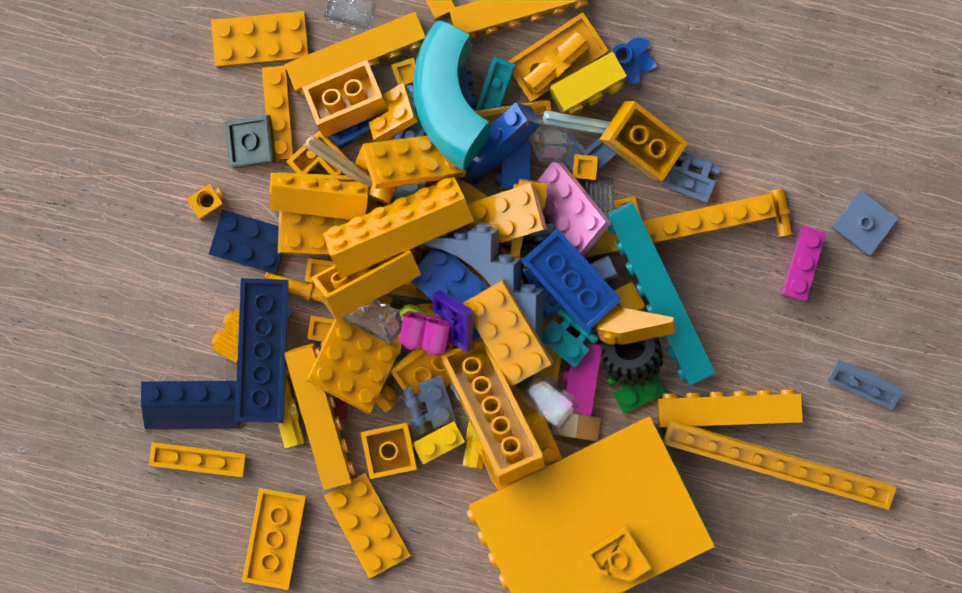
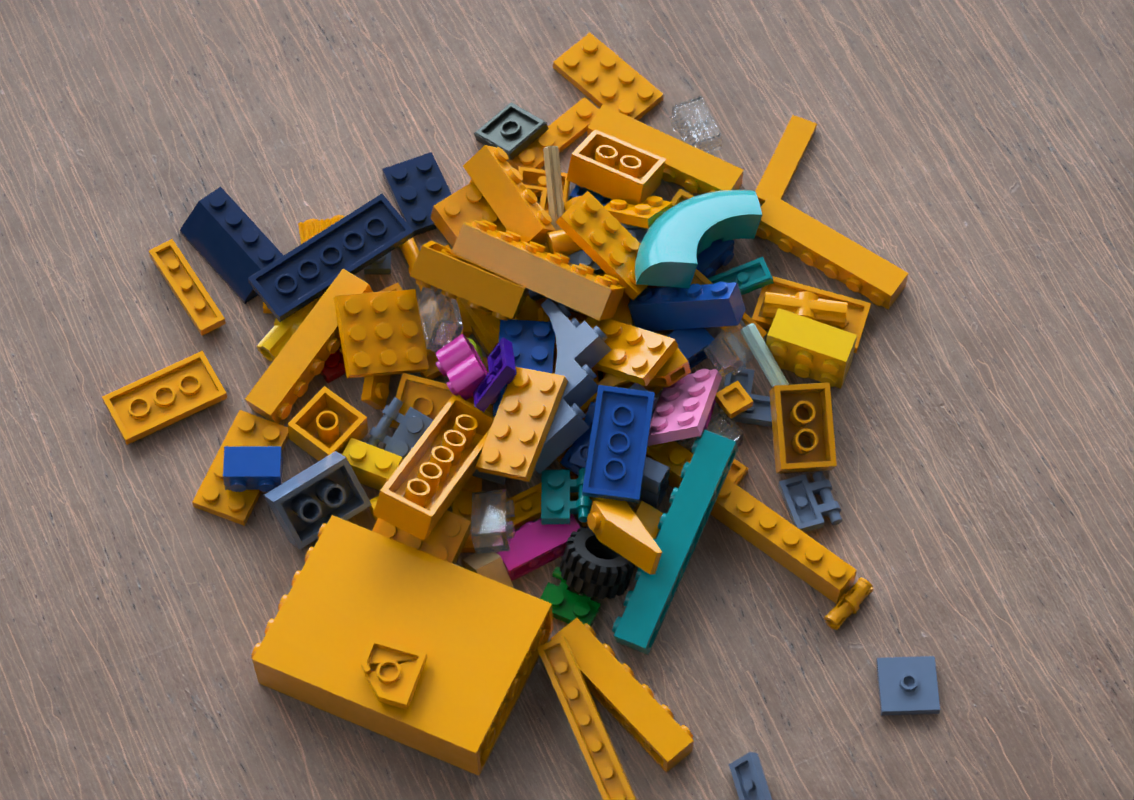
camera: 45 degrees right, 25 degrees down
(195, 202) = (425, 125): light orange brick -> none
(382, 525) = (252, 468): none -> blue brick
(441, 501) = (316, 495): none -> sand blue brick
(637, 59) = (869, 381): blue plate -> none
(803, 264) = (818, 654): dark pink brick -> none

